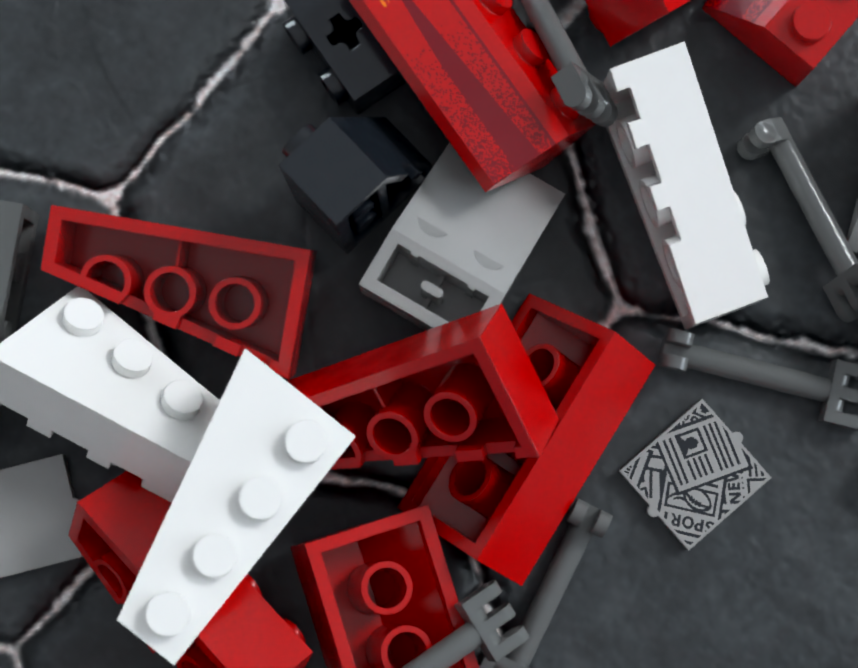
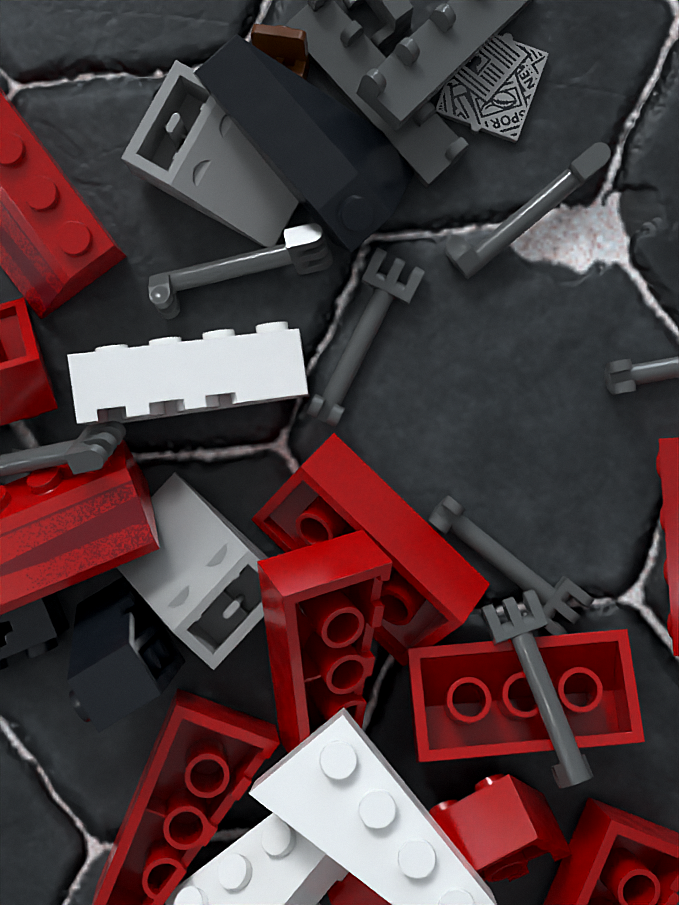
camera: 75 degrees left, 5 degrees up
(694, 474) = (429, 417): light grey piece -> none

